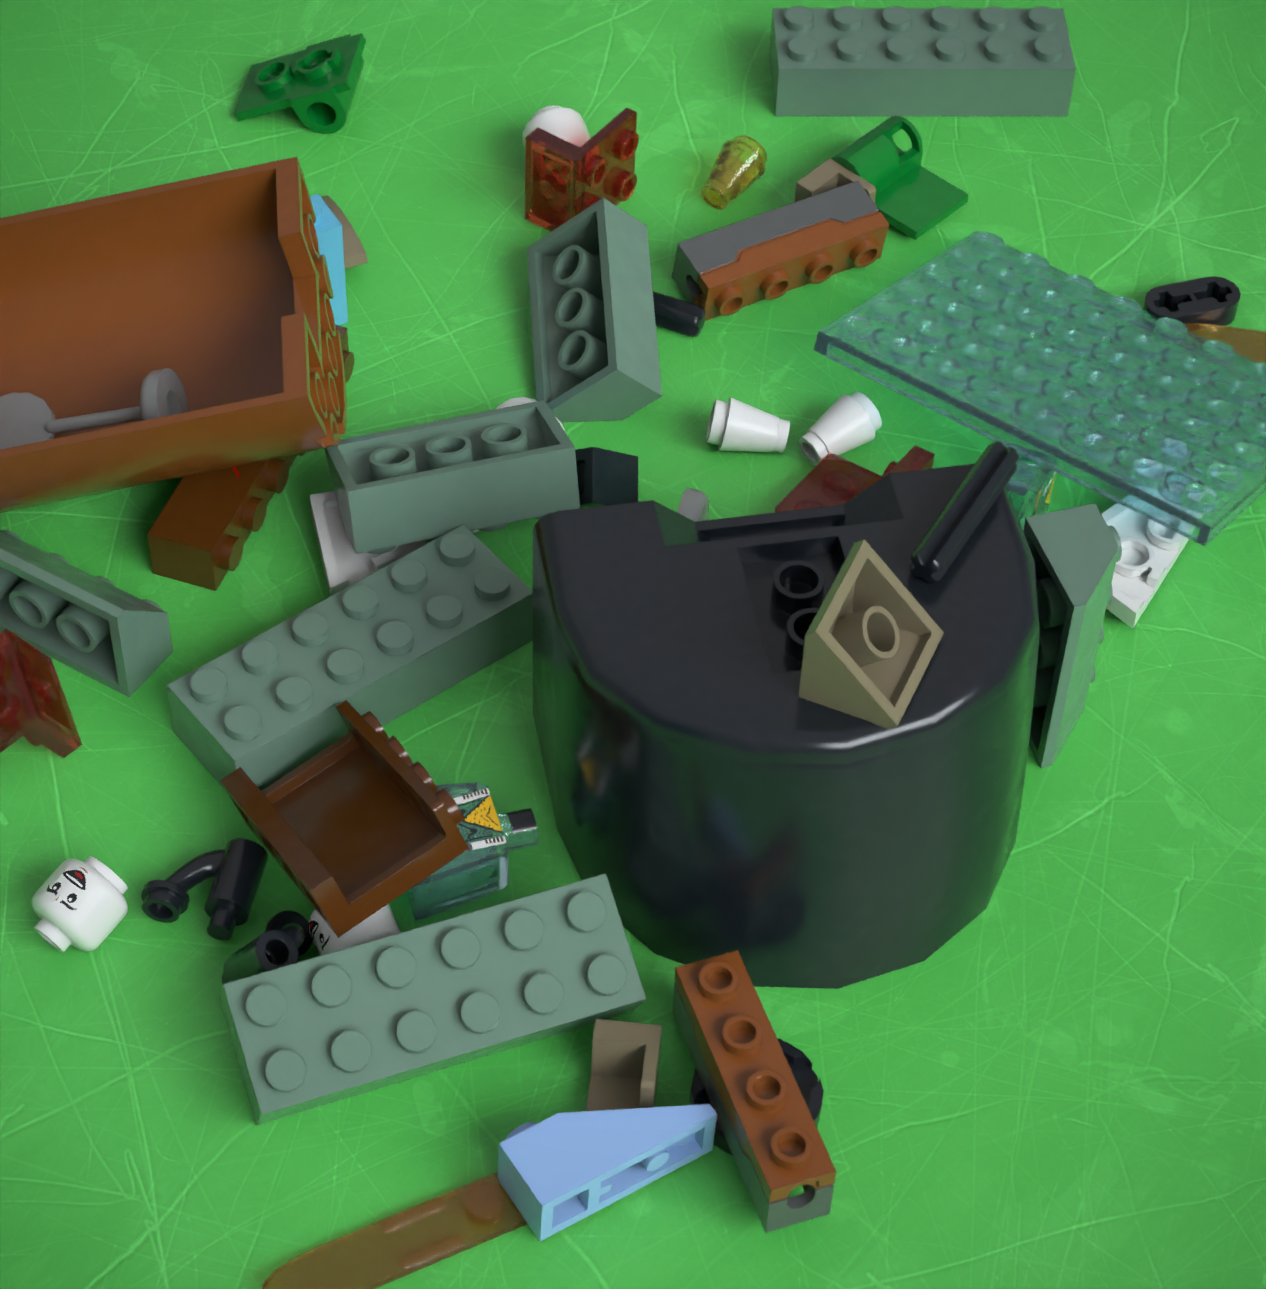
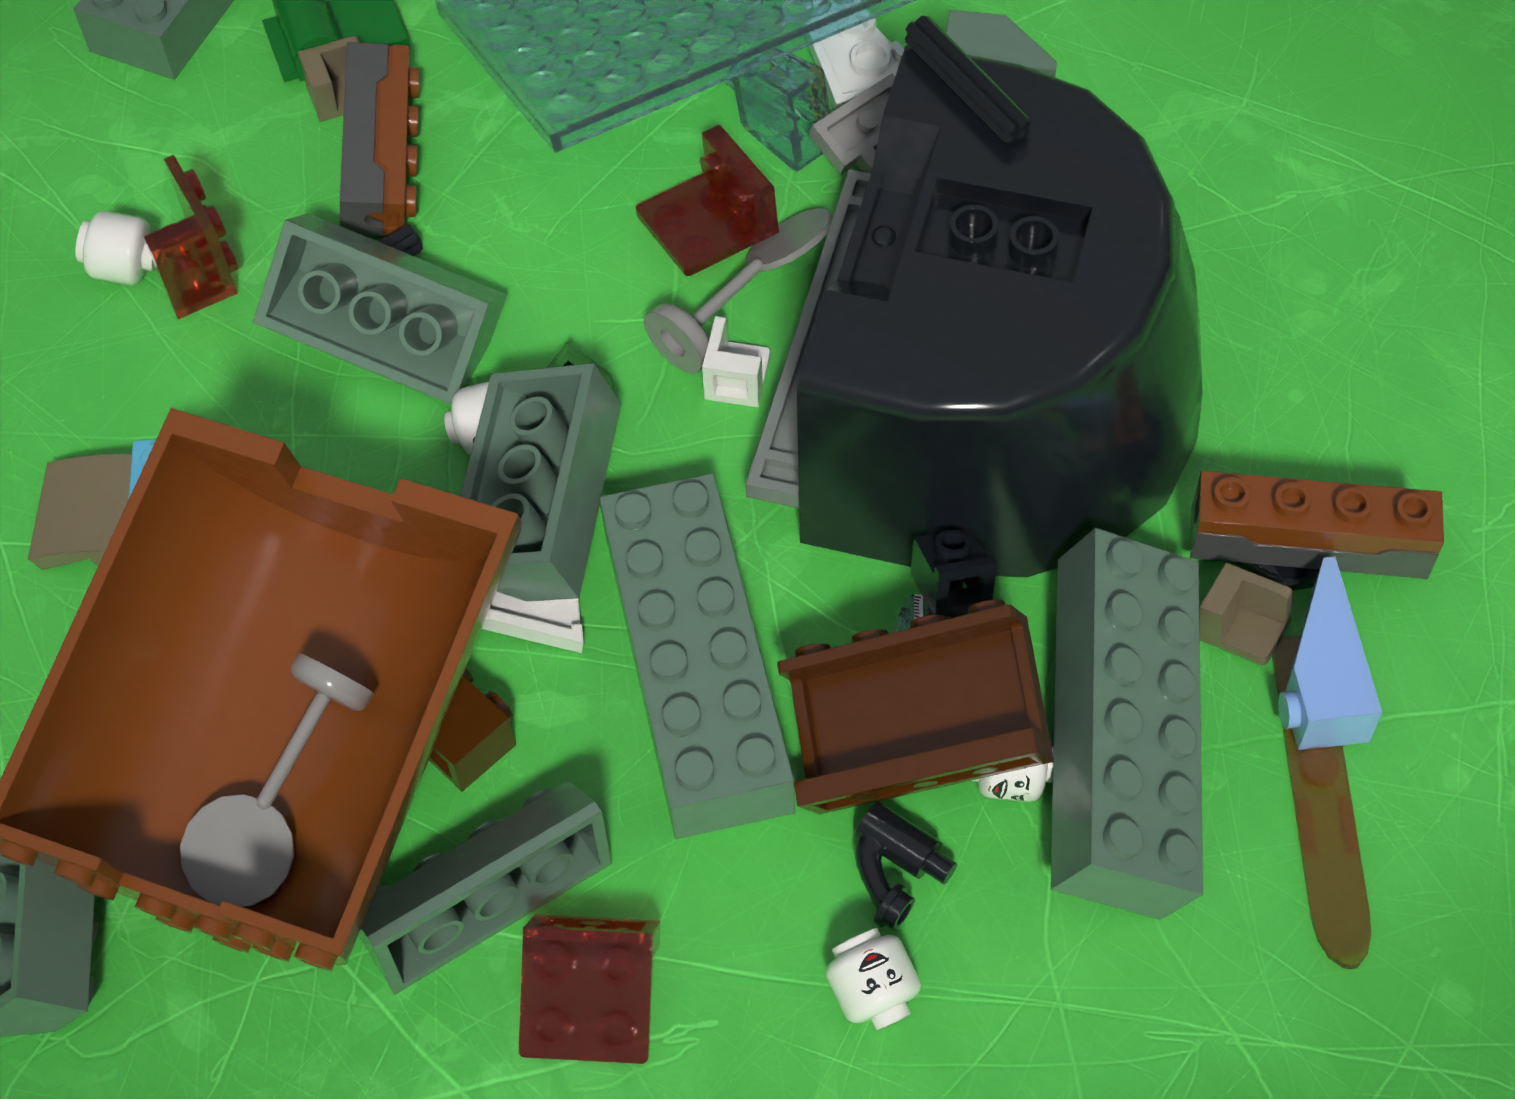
camera: 60 degrees left, 10 degrees up
(281, 945) = (1026, 843): black plant -> none
(529, 790) = (950, 556): none -> black brick
(735, 169) = (242, 133): clear yellow cone -> none
(745, 428) = (567, 257): white cone -> none
(841, 428) = (612, 185): white cone -> none
(867, 643) = (1089, 203): dark tan slope -> none

